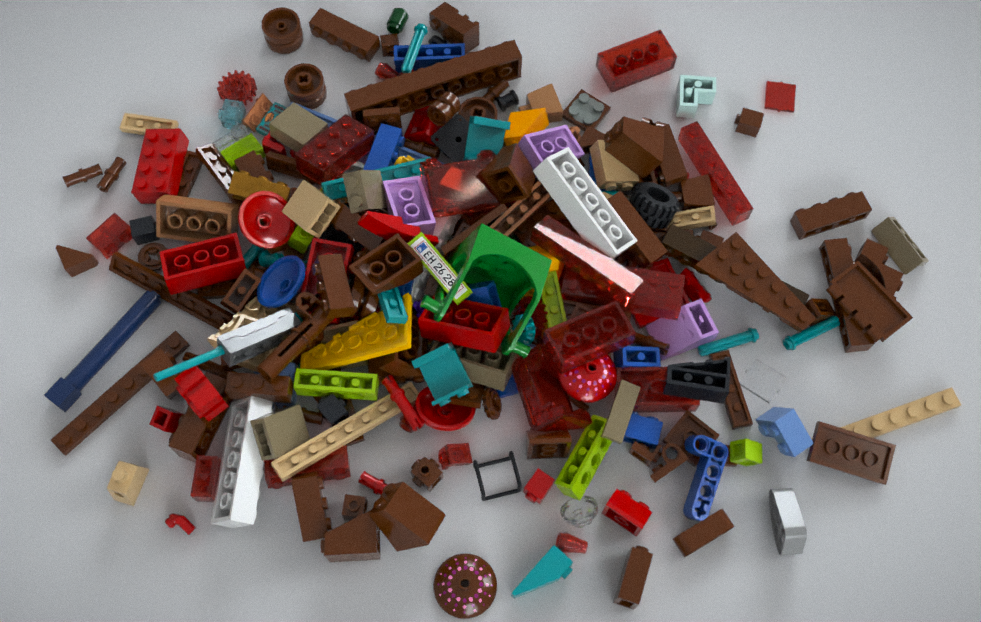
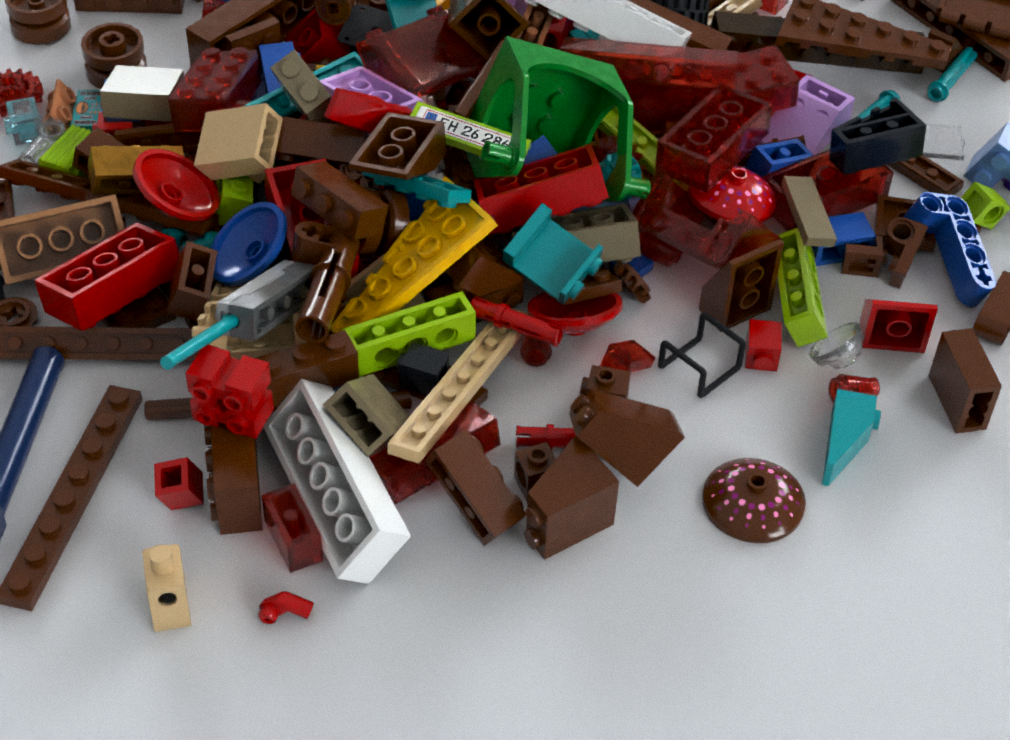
camera: 30 degrees left, 20 degrees down
(158, 362) = (144, 415): reddish brown brick -> none

